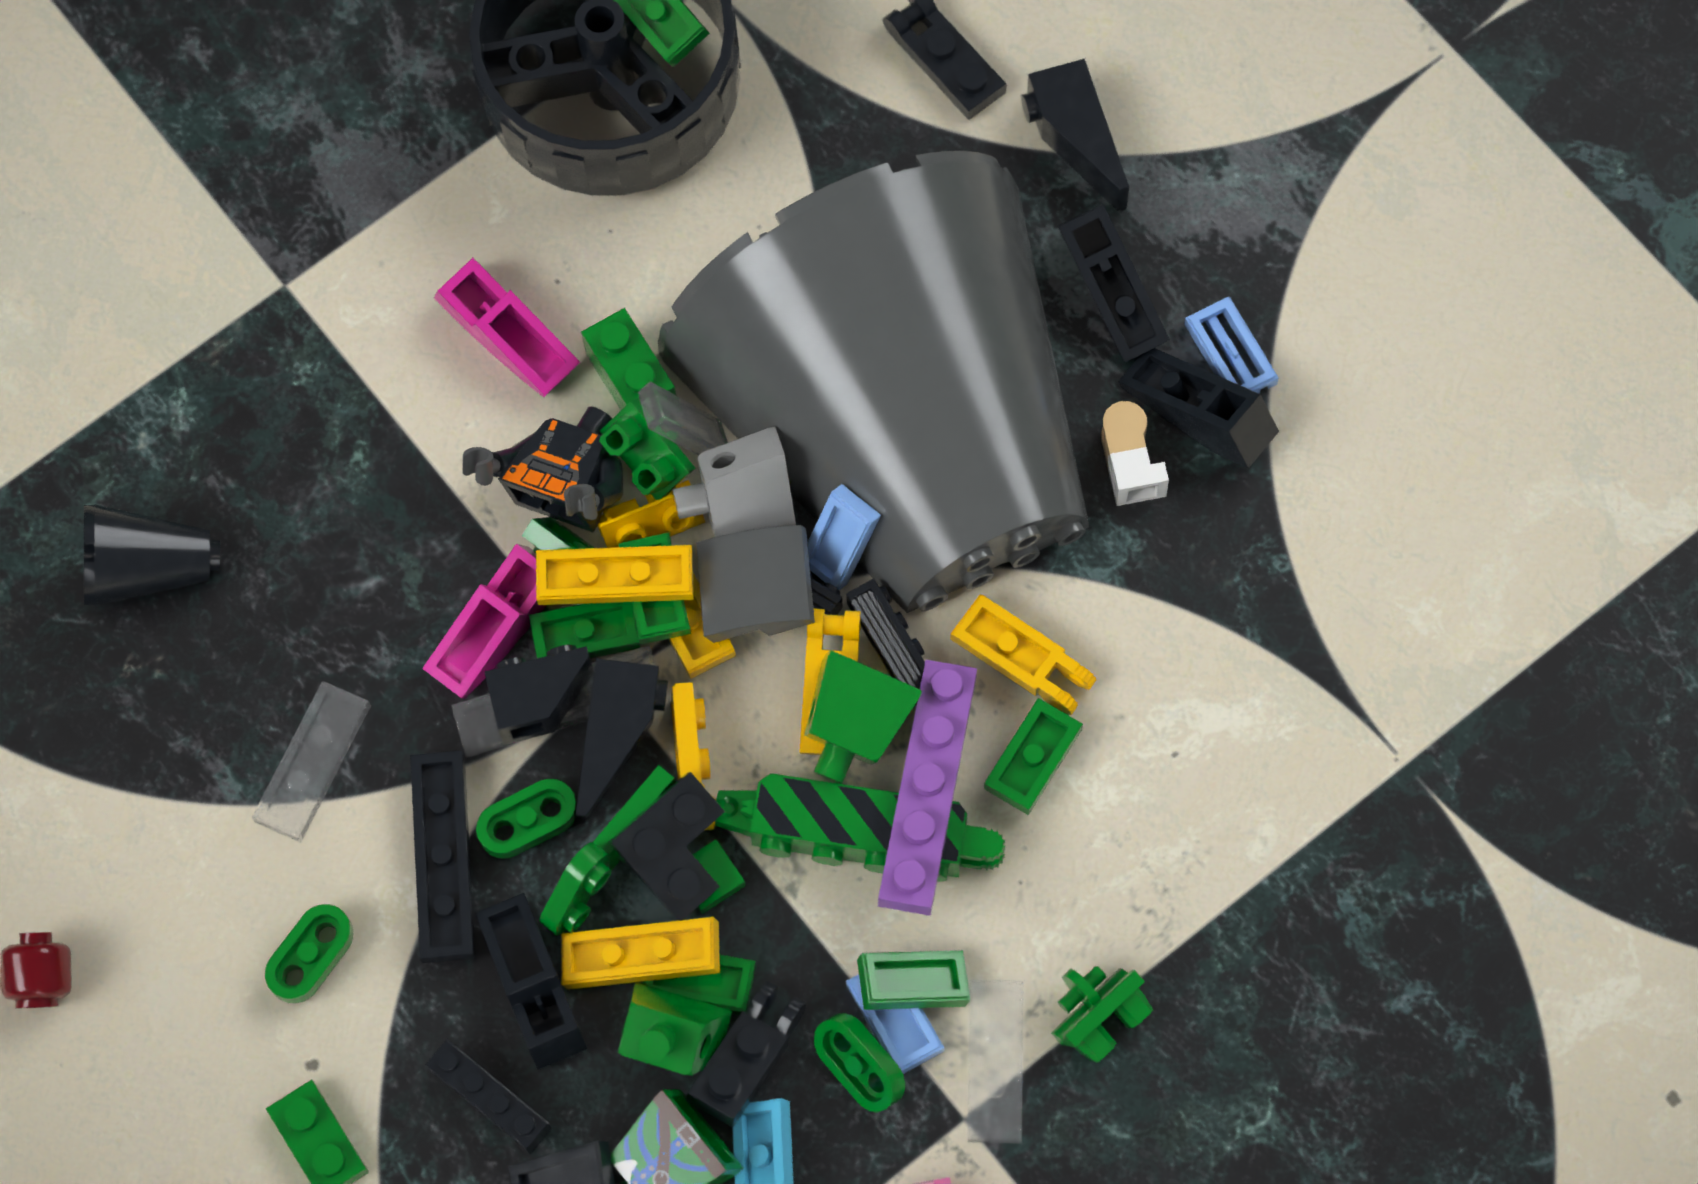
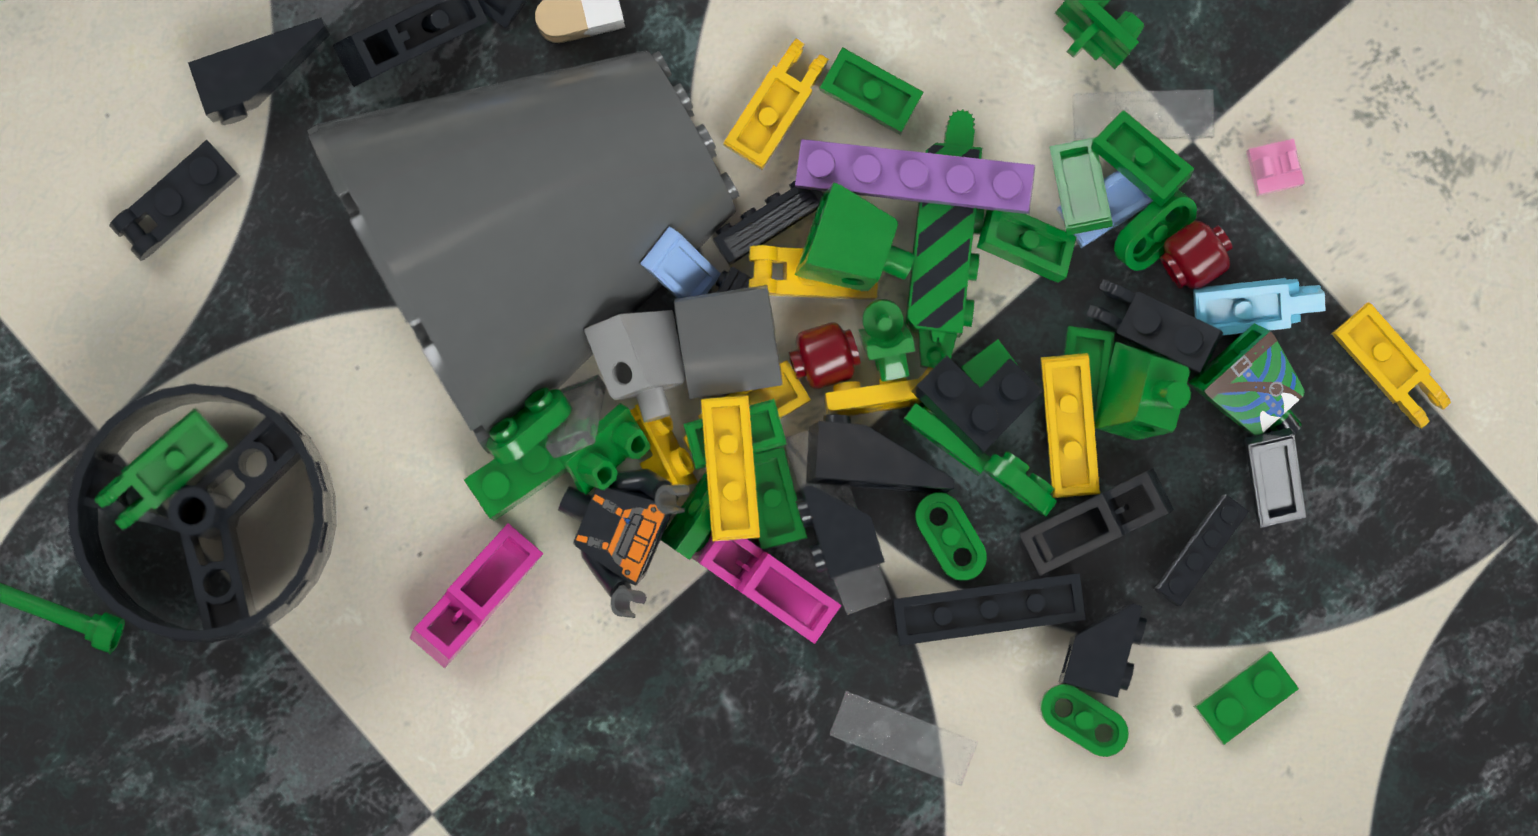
camera: 100 degrees left, 15 degrees up
(379, 973) = (1100, 652): none -> black slope
(664, 356) = (519, 434): none -> green plate
(737, 691) = (825, 355): none -> dark red head
(745, 751) = (886, 339): none -> green hips
(826, 1106) = (1196, 255): none -> dark red head
(848, 915) = (1027, 243): none -> green plate
(940, 1045) = (1142, 158): none -> green plate

